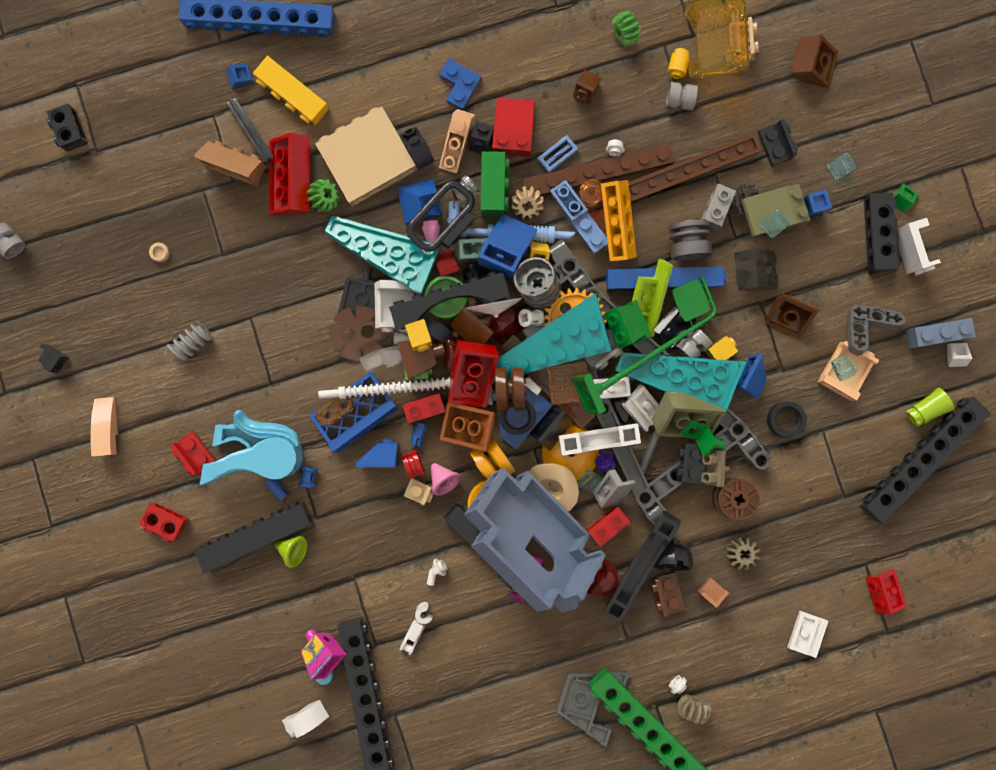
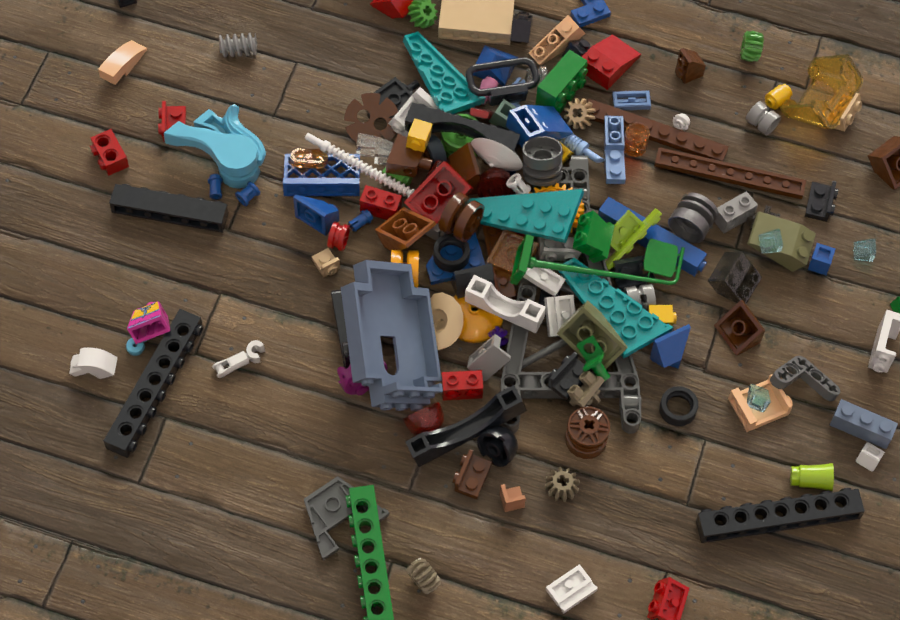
camera: 30 degrees right, 25 degrees down
(292, 550) = (191, 236): lime hat -> none
(439, 567) = (294, 325): white plate -> none
(443, 479) = (346, 263): bright pink hat -> none
(533, 386) = (482, 243): white tile -> none
(589, 481) = (472, 342): clear light blue slope -> none
(618, 220) = (644, 167): light orange brick -> none
(678, 684) = (424, 551): white plate -> none
(874, 241) = (877, 293): black brick -> none

